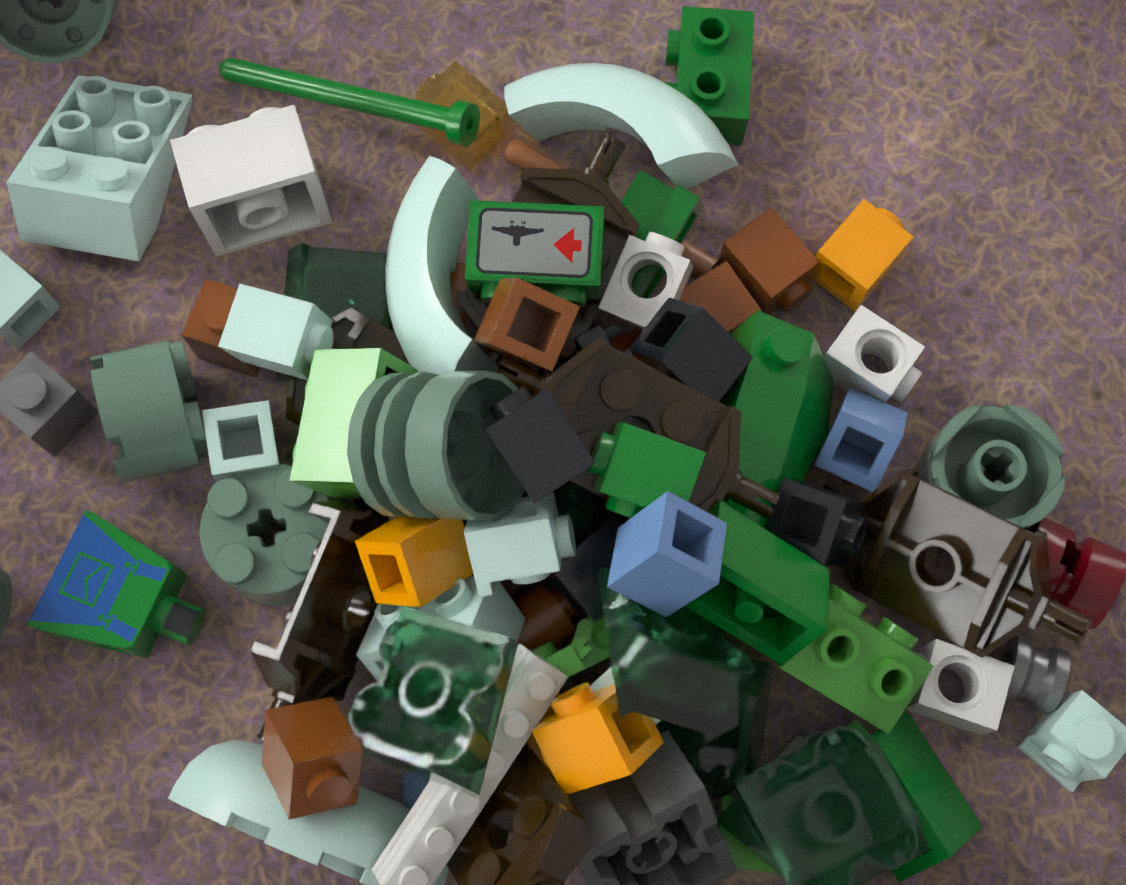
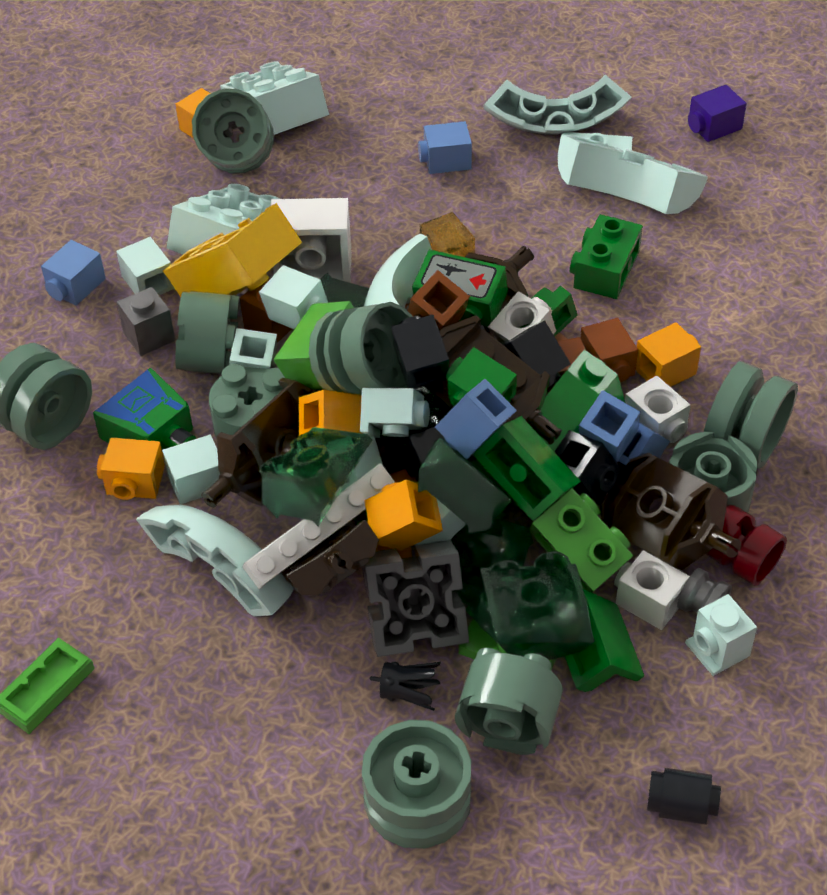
camera: 20 degrees right, 25 degrees down
(123, 698) = (131, 468): none -> light orange brick
(151, 272) = (236, 259): none -> yellow wedge
(219, 668) = (192, 467): none -> light aqua brick
(311, 757) = (230, 500): dark orange brick -> none
(458, 121) = (441, 234): green bar -> none
(621, 98) = (551, 250): light aqua brick -> none
(845, 462) = (611, 423): none -> medium blue brick
(1021, 343) = (752, 409): none -> sand green wheel

